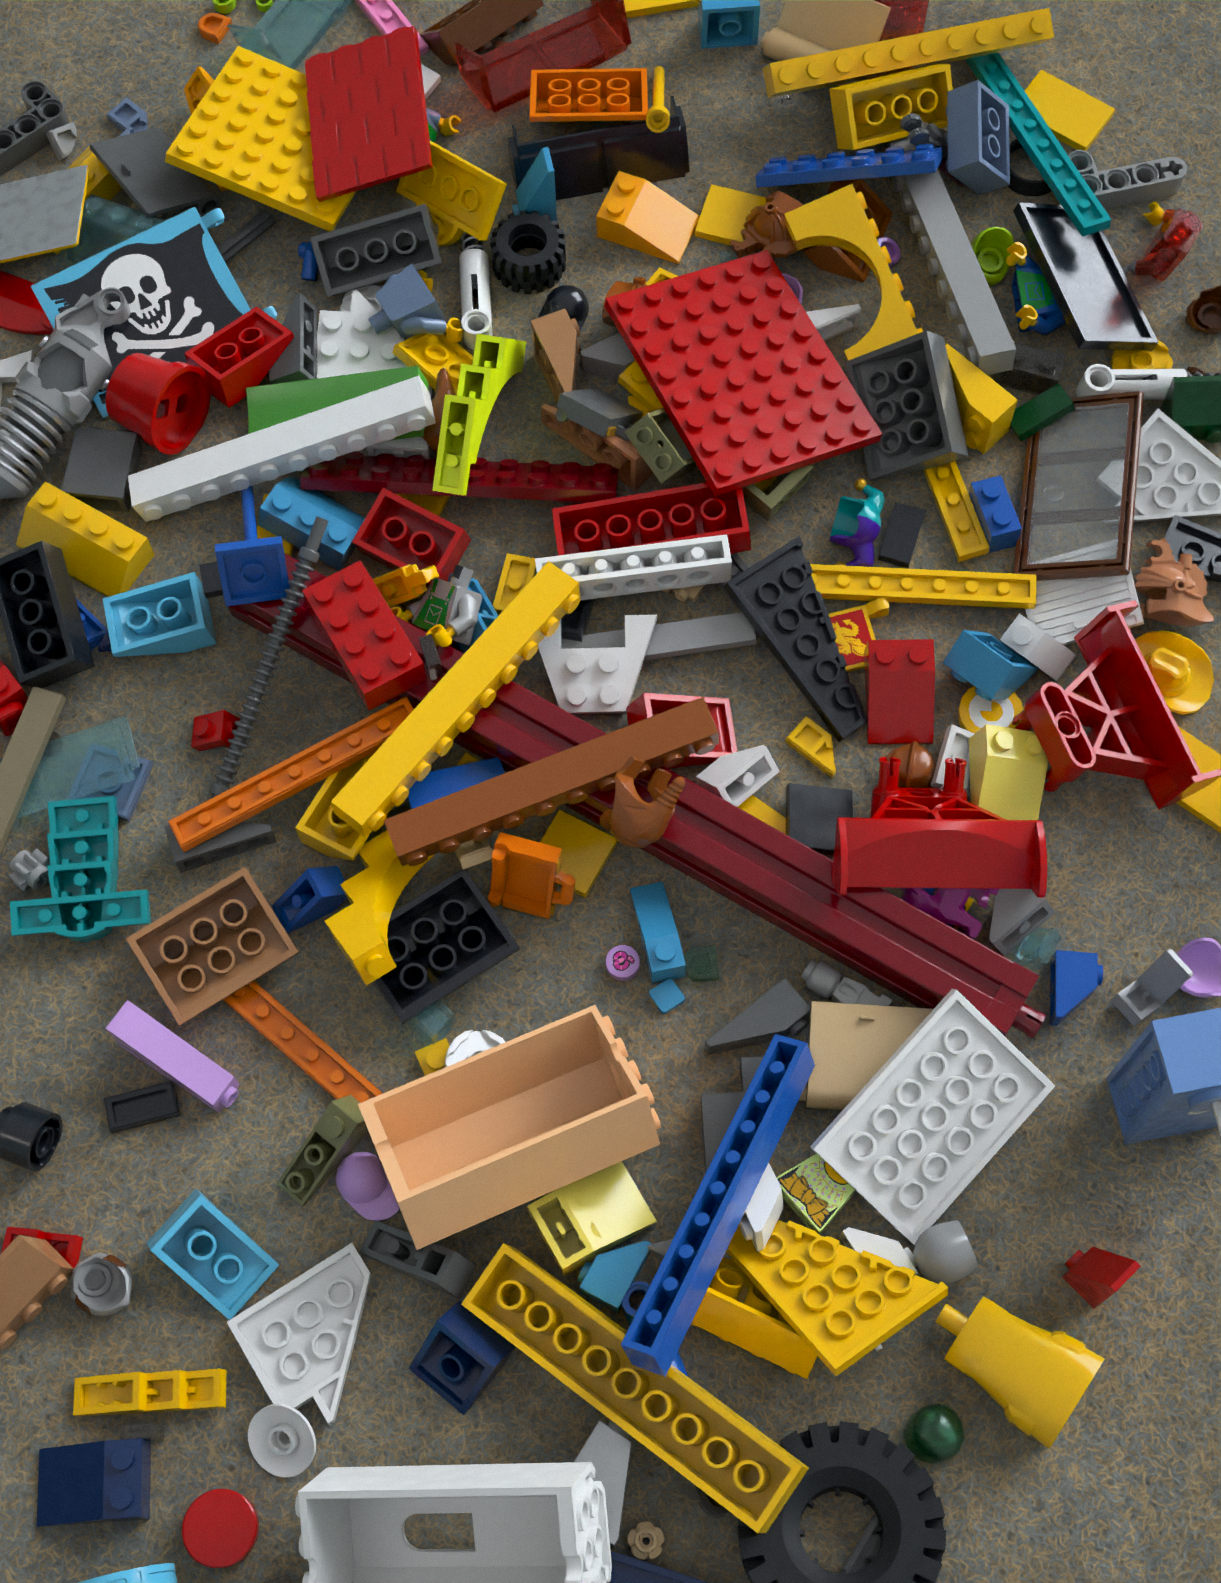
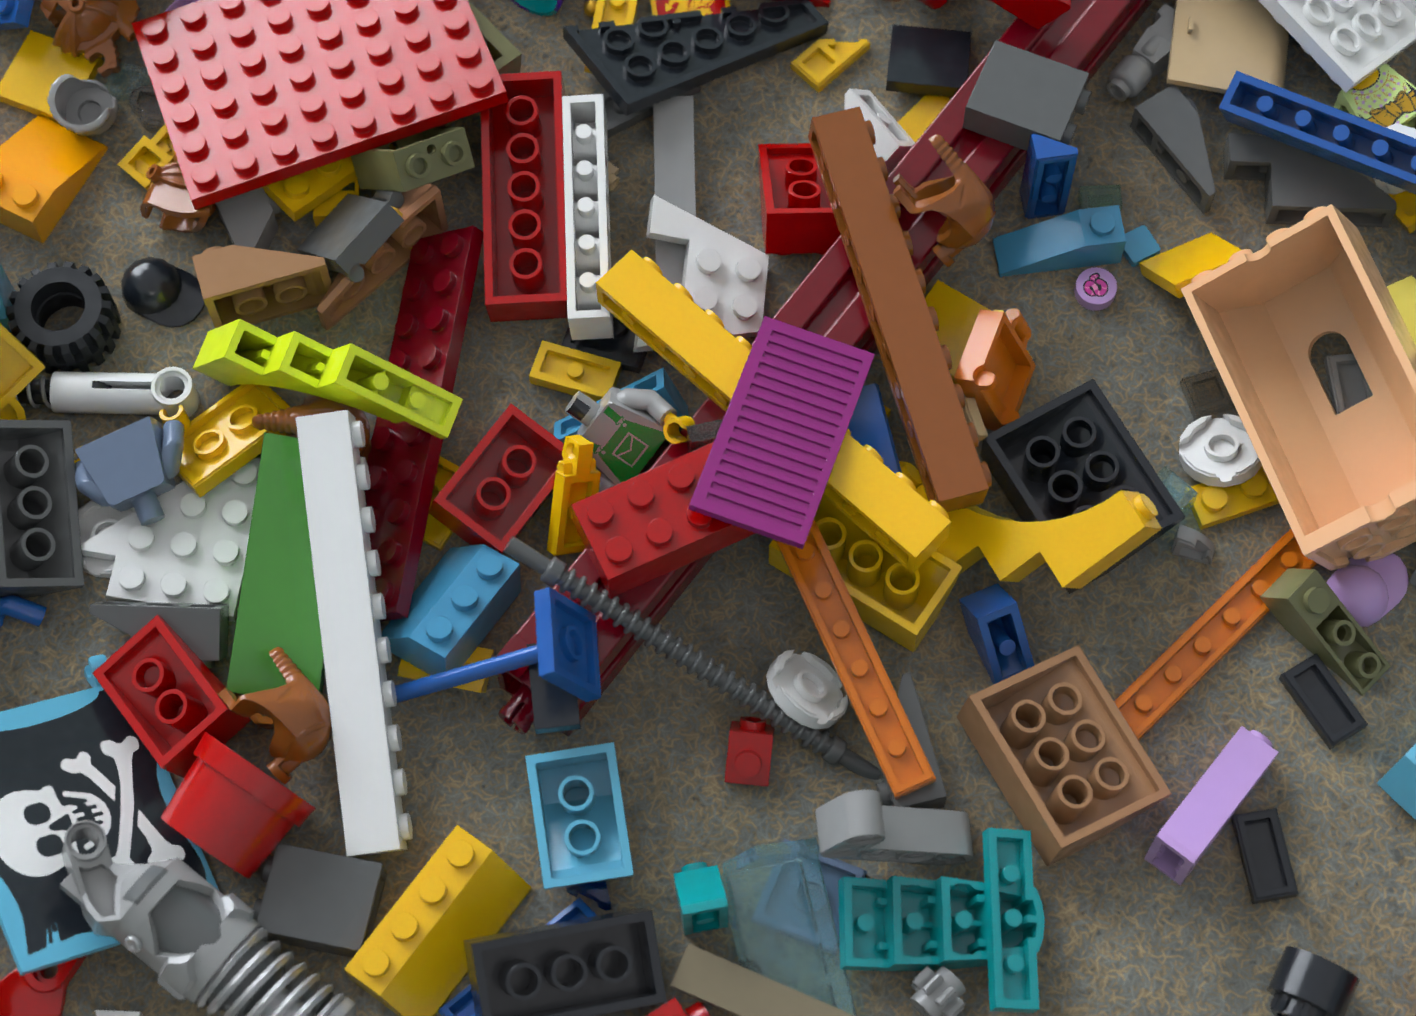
camera: 85 degrees left, 0 degrees up
(98, 700) = (701, 898): none -> teal slope
(140, 821) = (863, 829): none -> light grey beam
(219, 419) = (294, 712): none -> dark orange piece
(255, 753) = (806, 689): none -> white tile
(268, 1151) = (1323, 701): none -> black tile
(397, 1036) = (1193, 545): none -> light grey tile
(426, 697) = (782, 432): none -> magenta window
(643, 1032) = (1181, 264): none -> yellow tile
(698, 899) = (1047, 177): none -> blue slope
(699, 234) = (82, 105): none -> light grey hair
(752, 870) = (1026, 96): none -> dark grey brick

